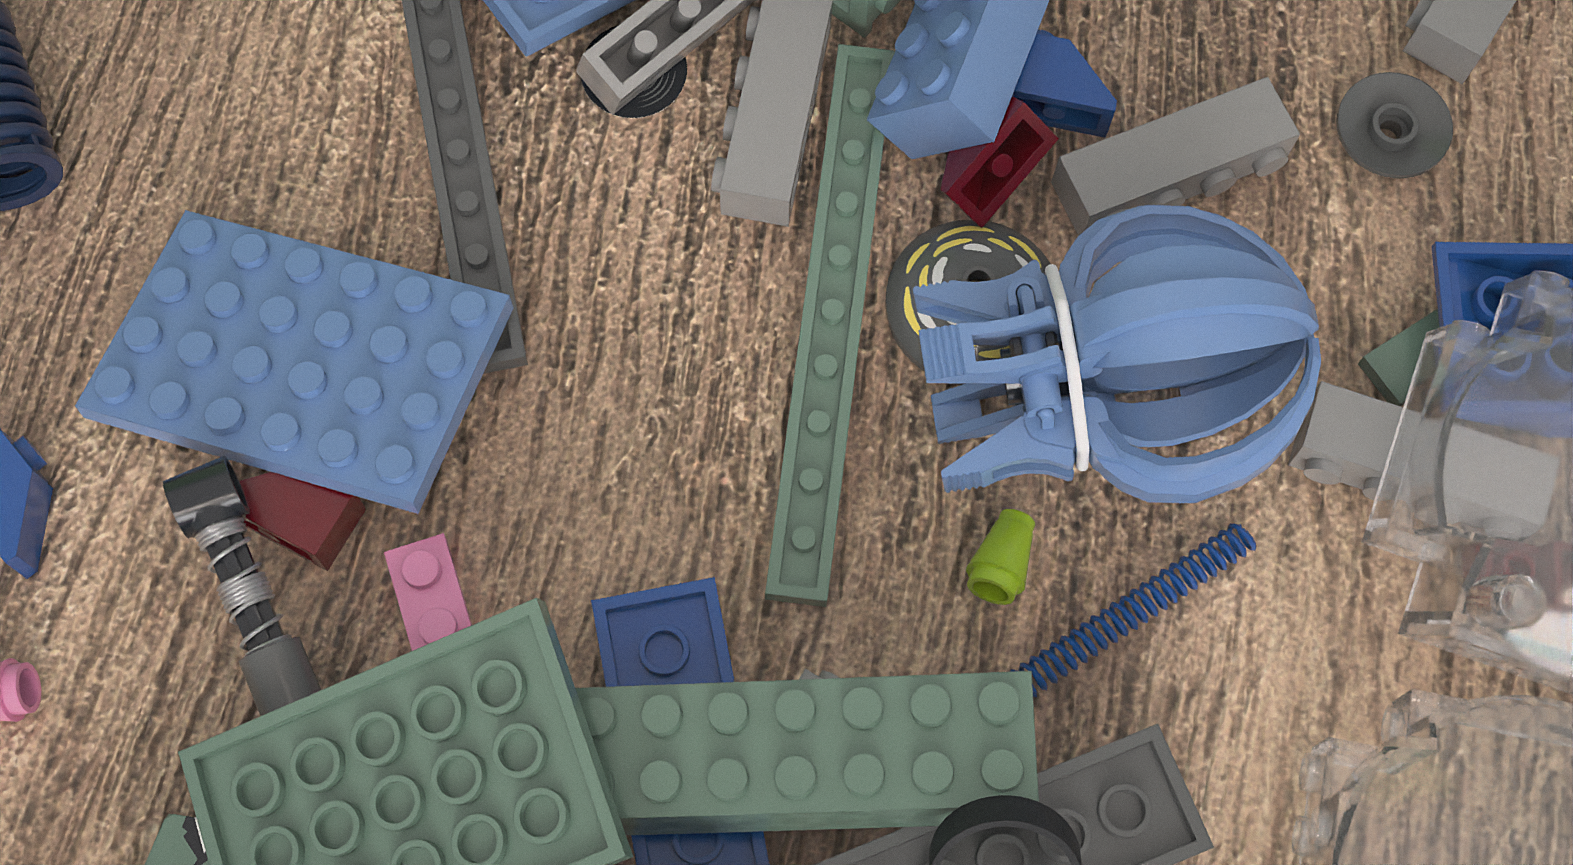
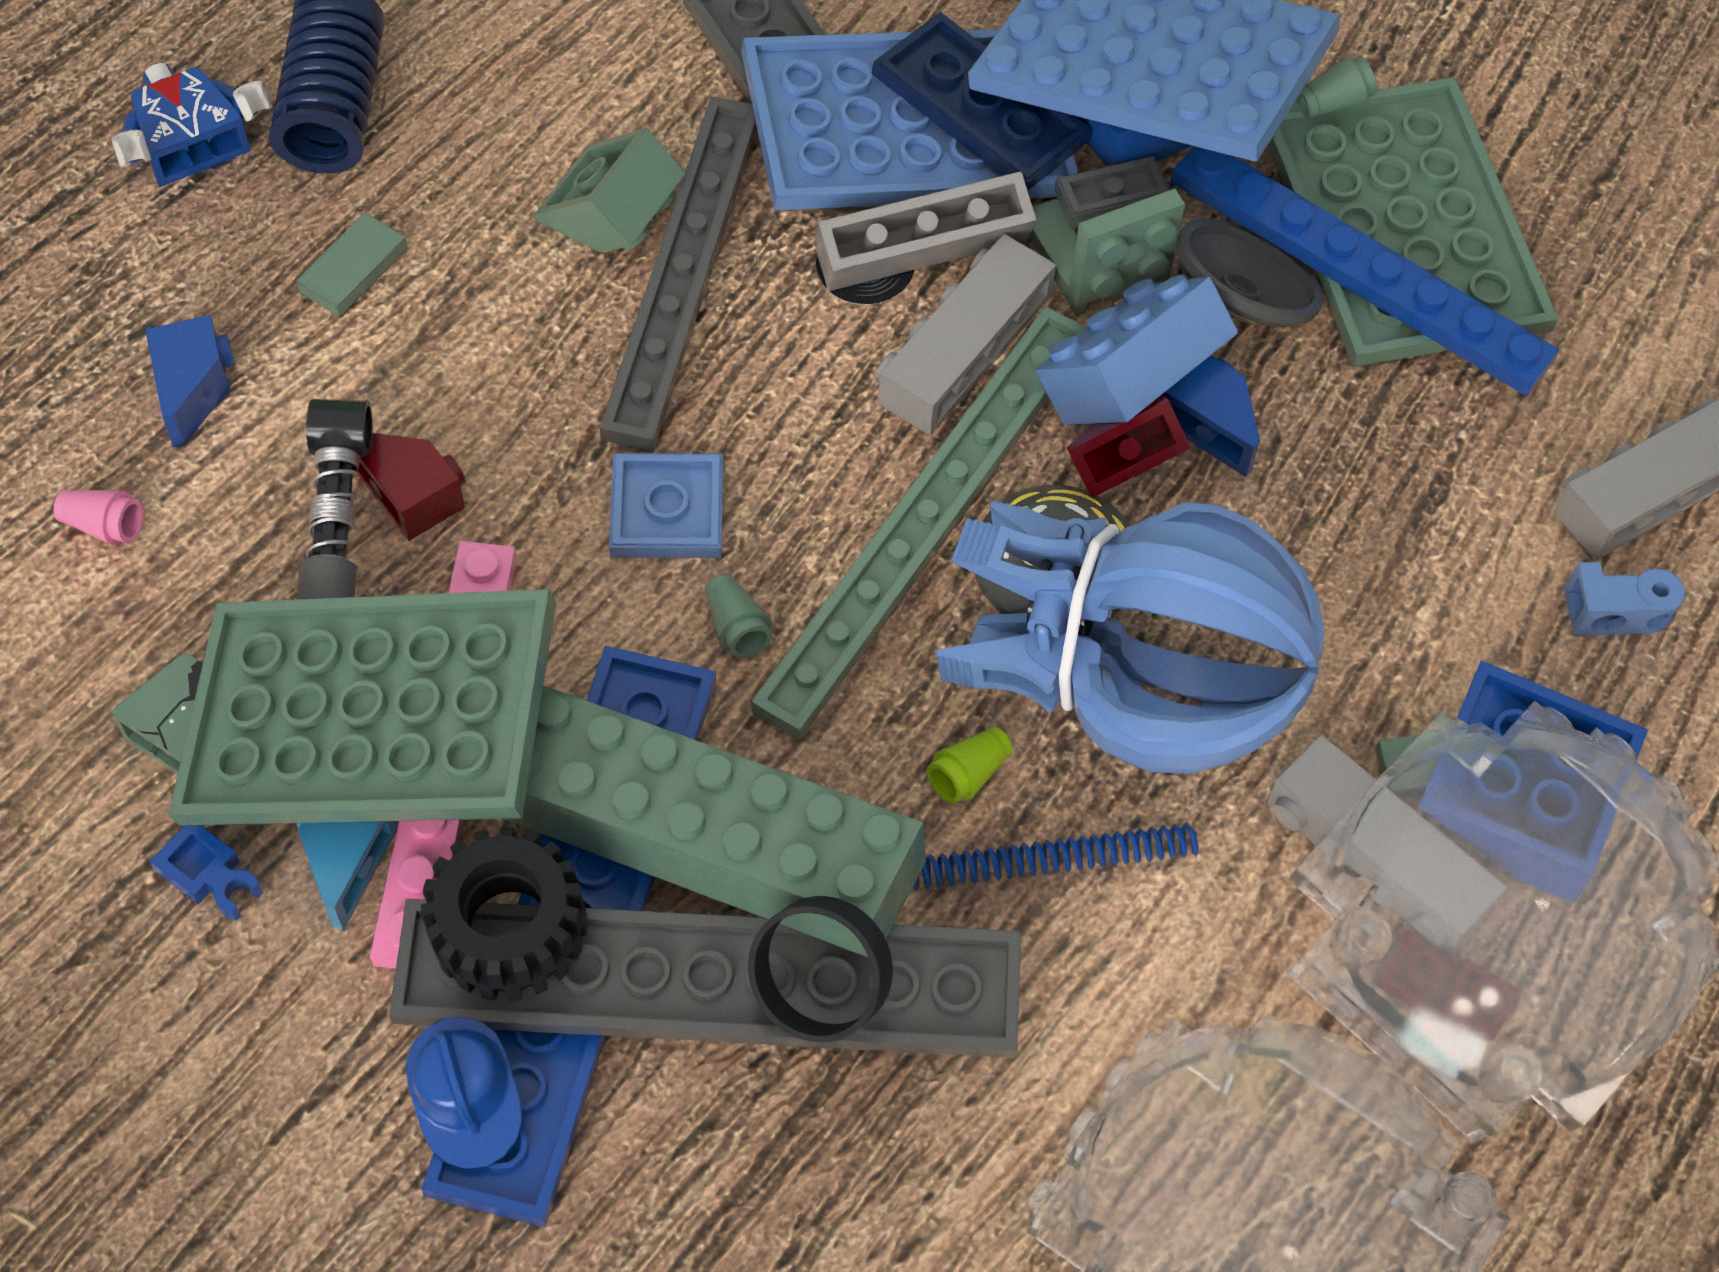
camera: 25 degrees right, 10 degrees down
(108, 290) = (351, 264): none -> sand green tile
(298, 360) = (470, 365): medium blue plate -> none
(345, 102) = (613, 192): none -> sand green slope
(570, 417) = (666, 505): none -> medium blue tile
(703, 507) = (737, 617): none -> sand green cone
(1178, 155) = (1311, 510): light grey brick -> none
(1408, 110) = (1511, 546): dark grey dish -> none
(1497, 126) = (1621, 602): none -> medium blue leg

